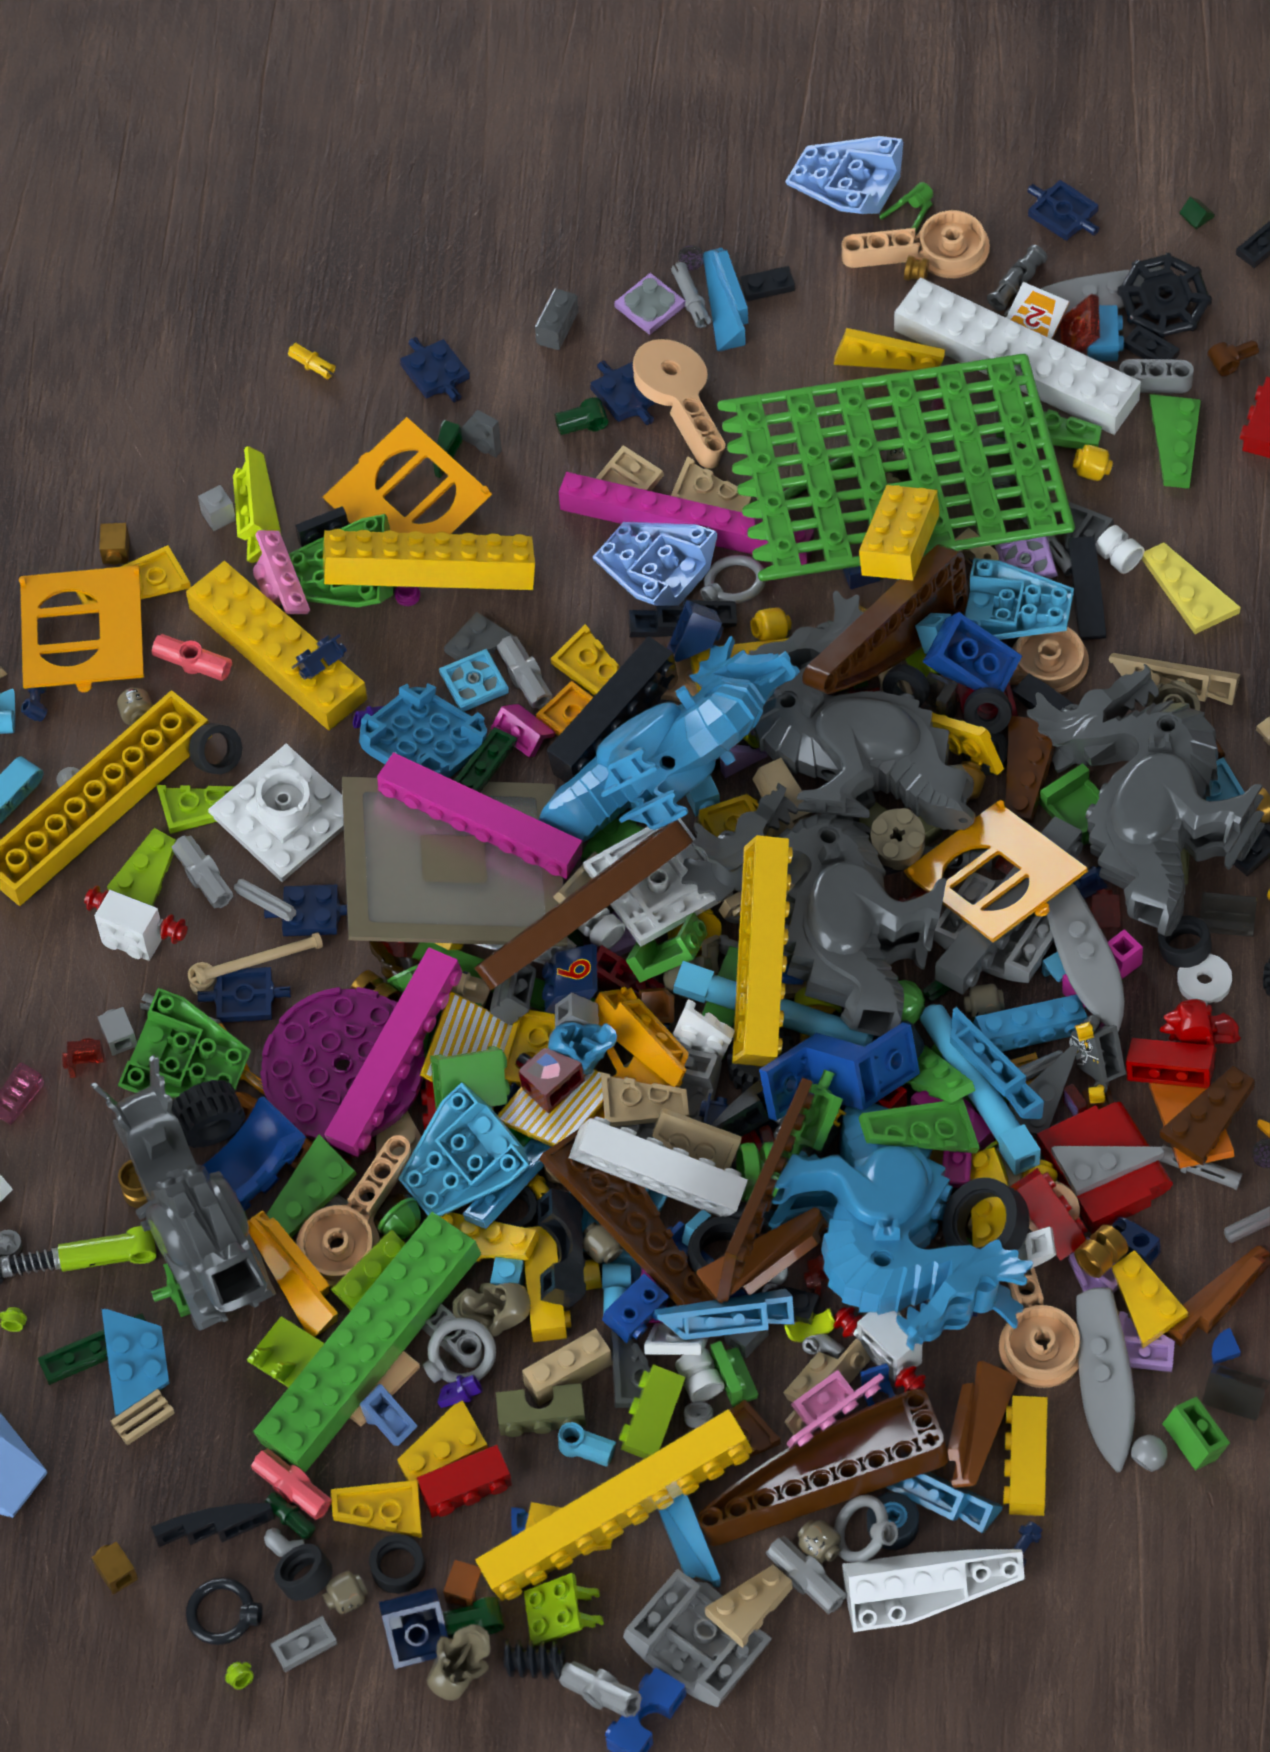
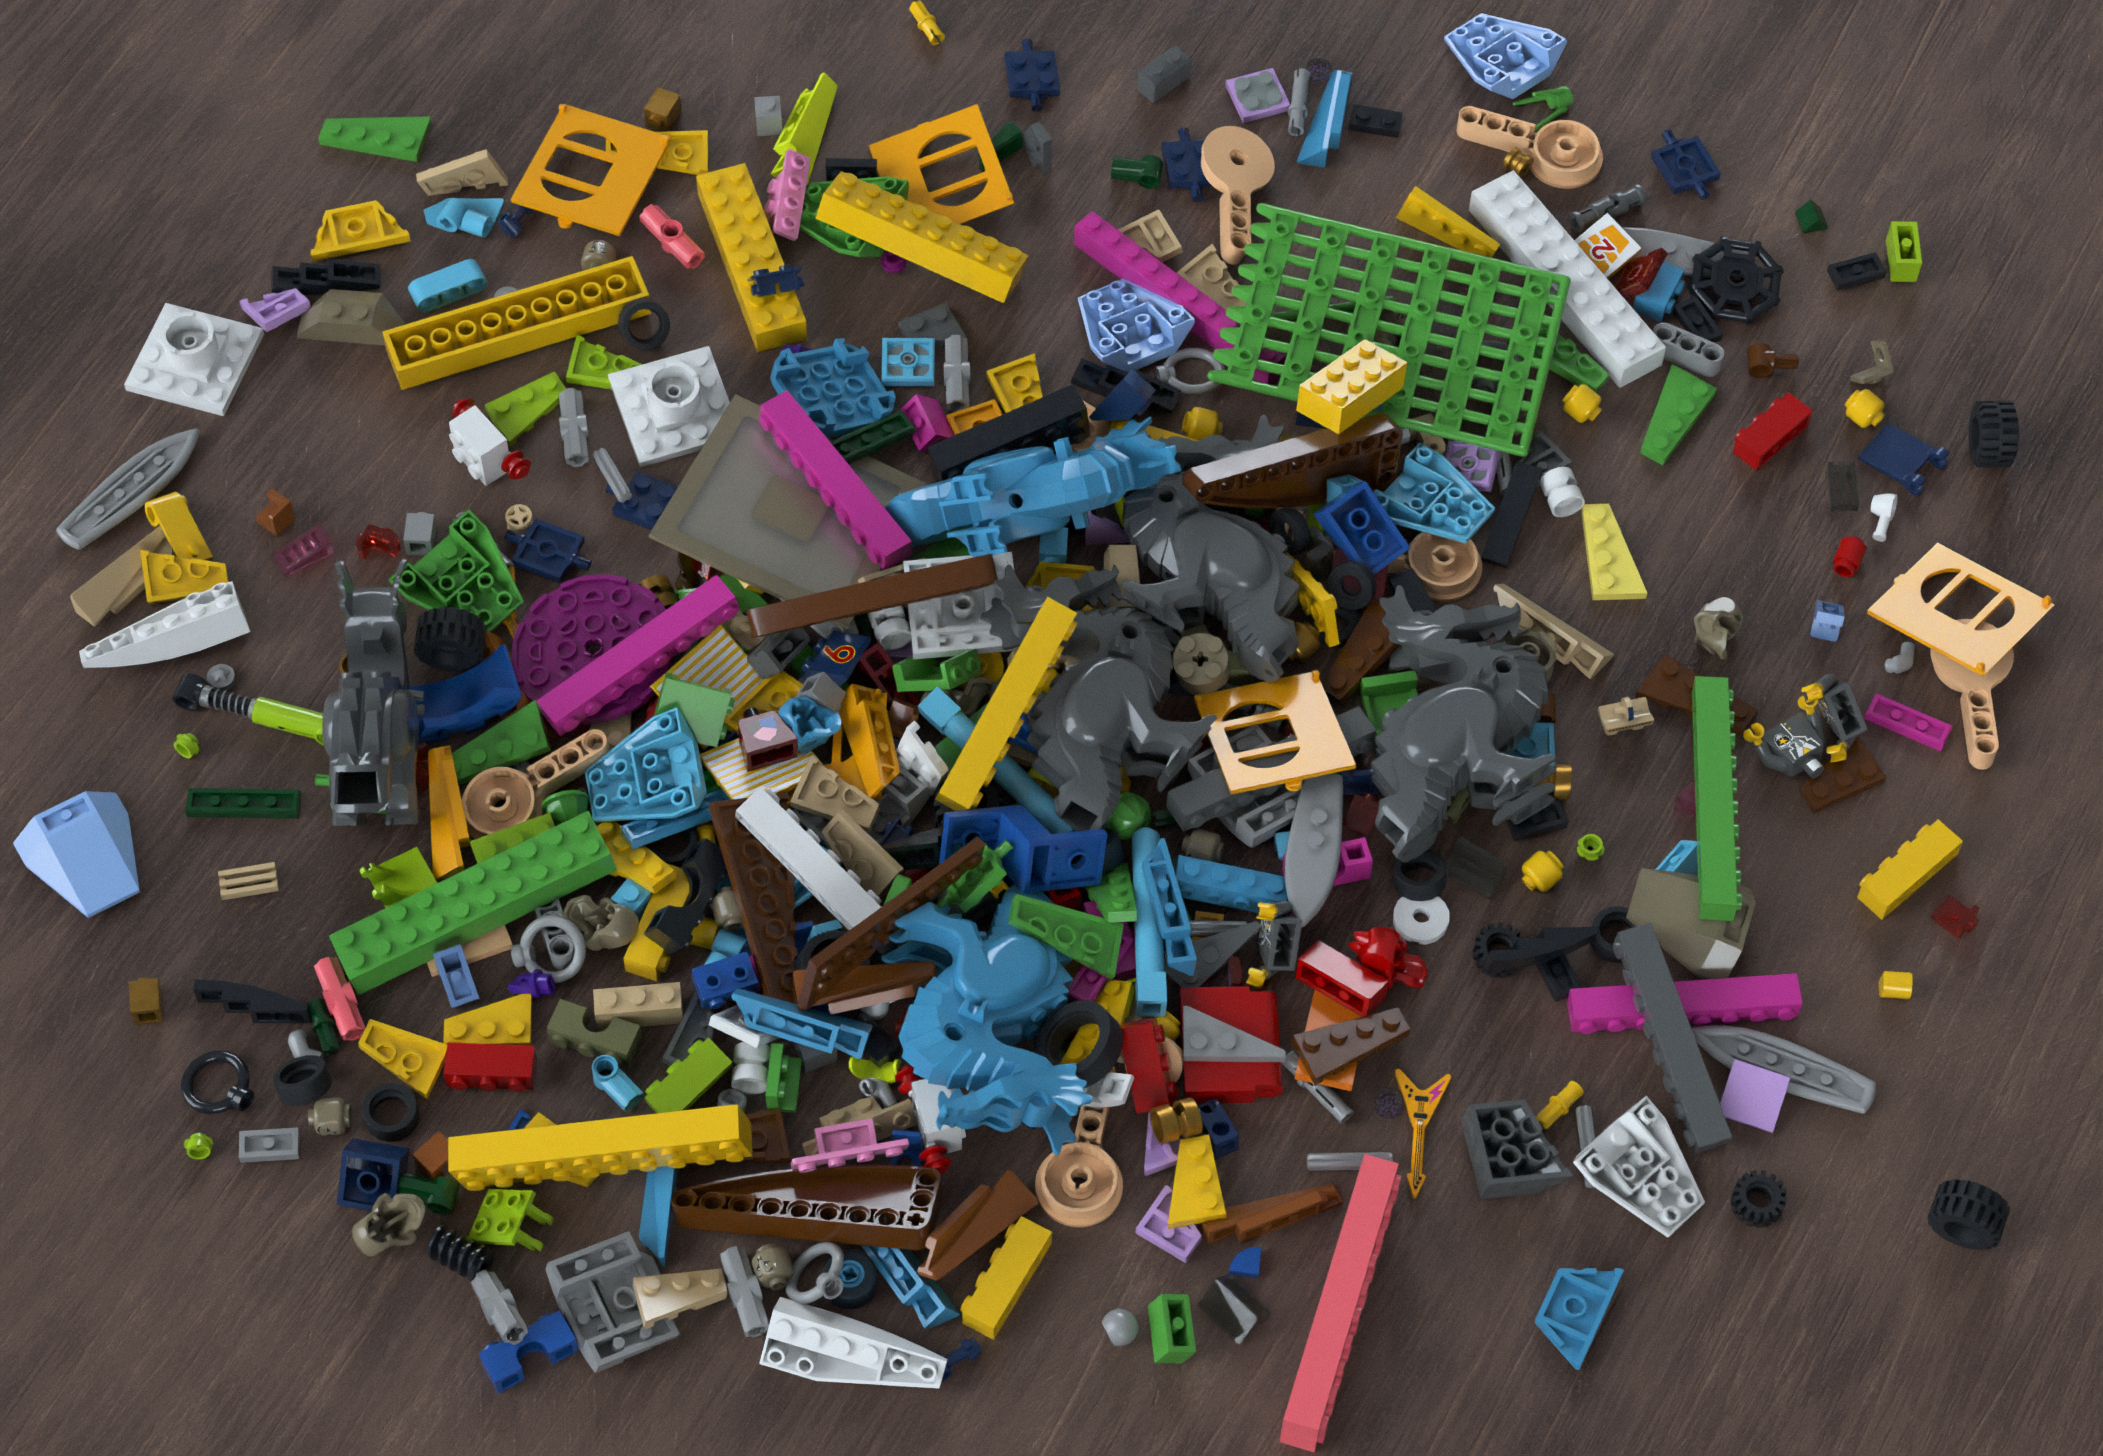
camera: 20 degrees right, 0 degrees up
(134, 1358) = (269, 826): dark azure wing -> none
(255, 959) = (574, 523): tan bar -> none
(1105, 1375) = (1119, 1237): light grey piece -> none

